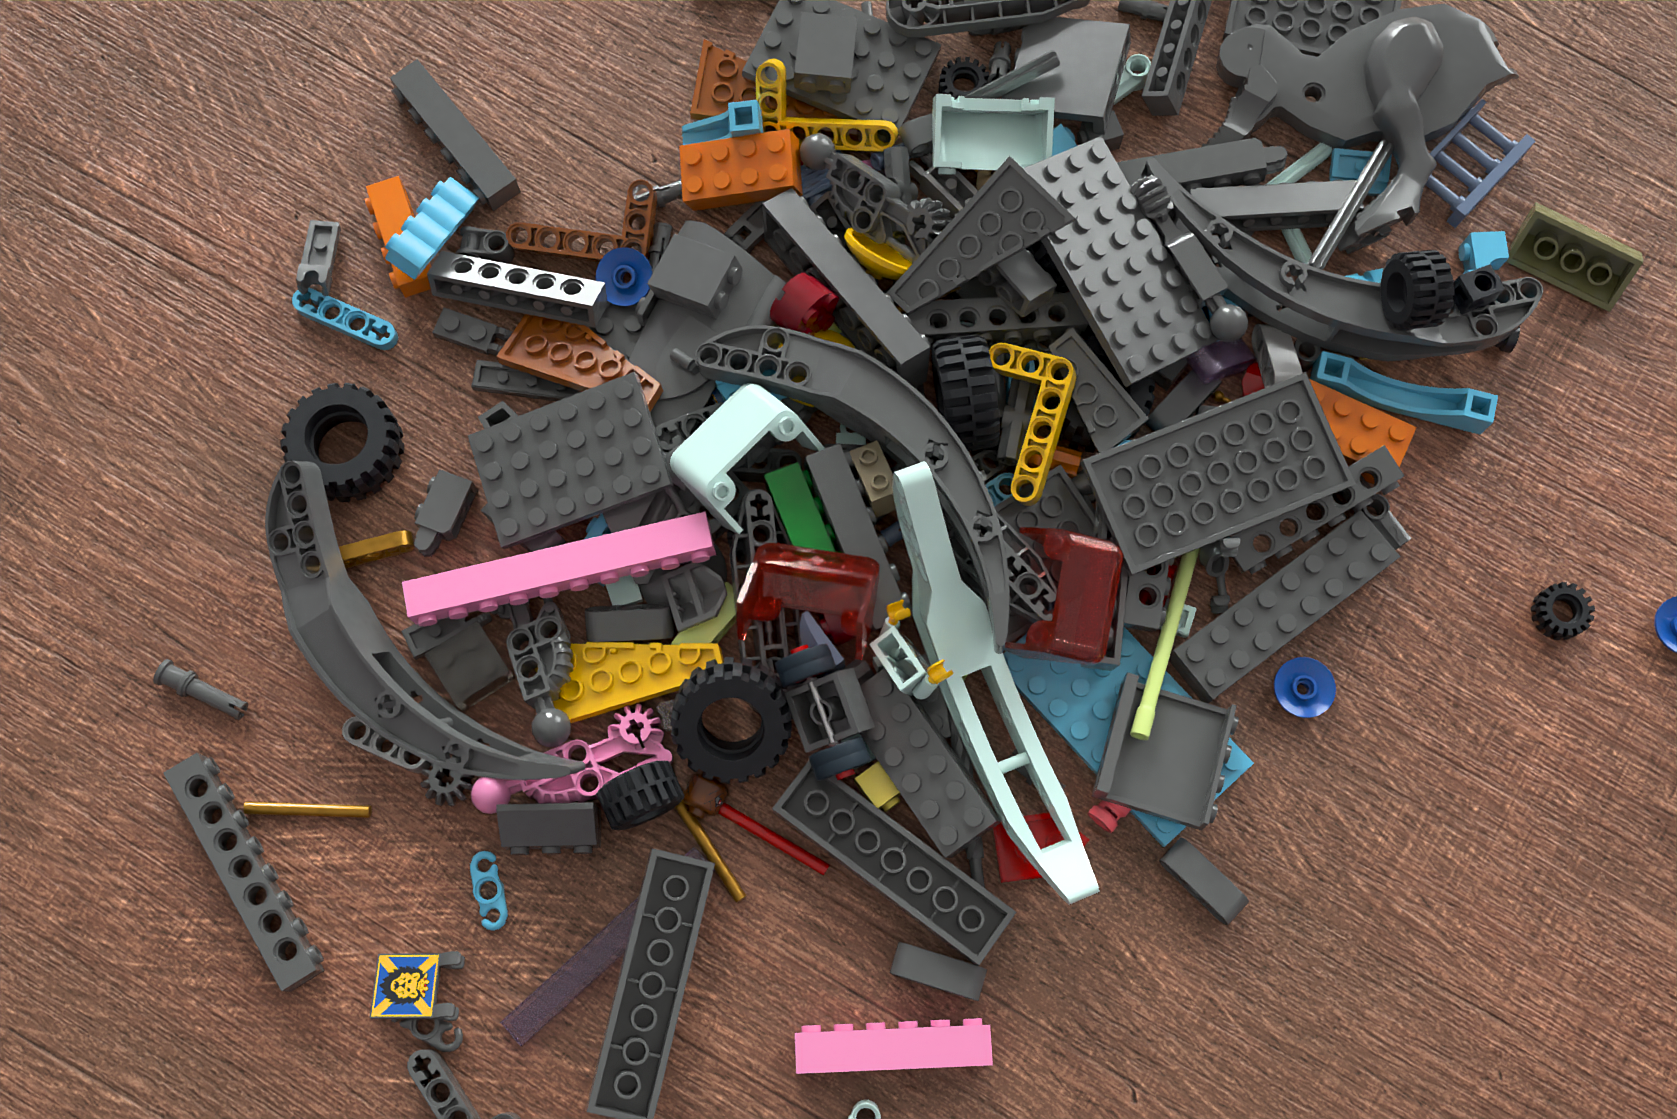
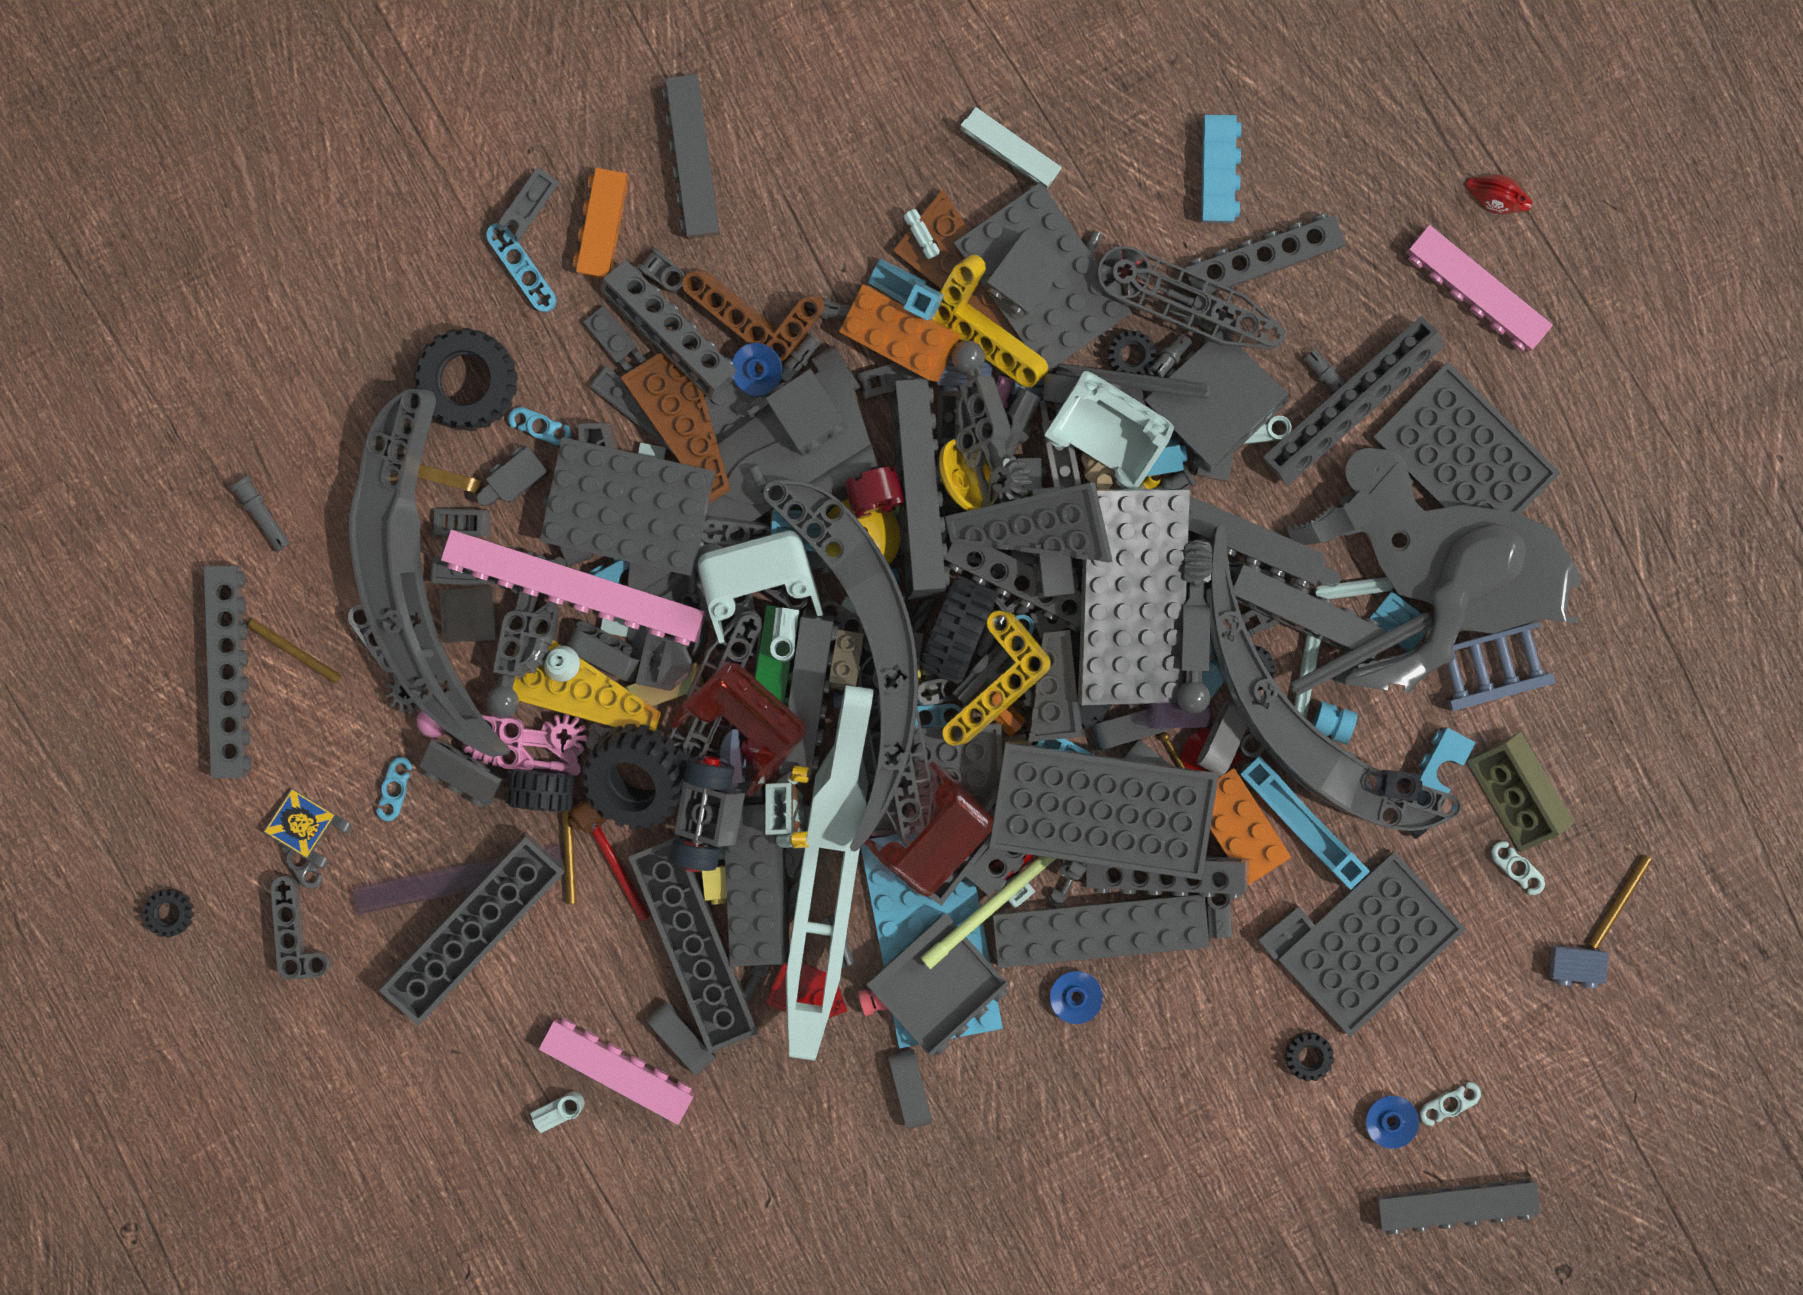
camera: 30 degrees right, 15 degrees up
(420, 568) = (476, 517): none -> dark grey slope
(430, 446) = (530, 417): none -> medium azure piece
(431, 227) = (628, 239): medium azure brick -> none
(591, 656) = (568, 664): none -> light aqua cone
(708, 82) = (921, 233): none -> light aqua axle
(798, 486) = (785, 631): none -> light aqua piece
(1417, 289) = (1340, 766): black tyre -> none
(1455, 506) = (1285, 932): none -> dark grey hinge
(1542, 472) = (1371, 943): none -> dark grey plate
(1632, 324) = (1506, 863): none -> light aqua piece

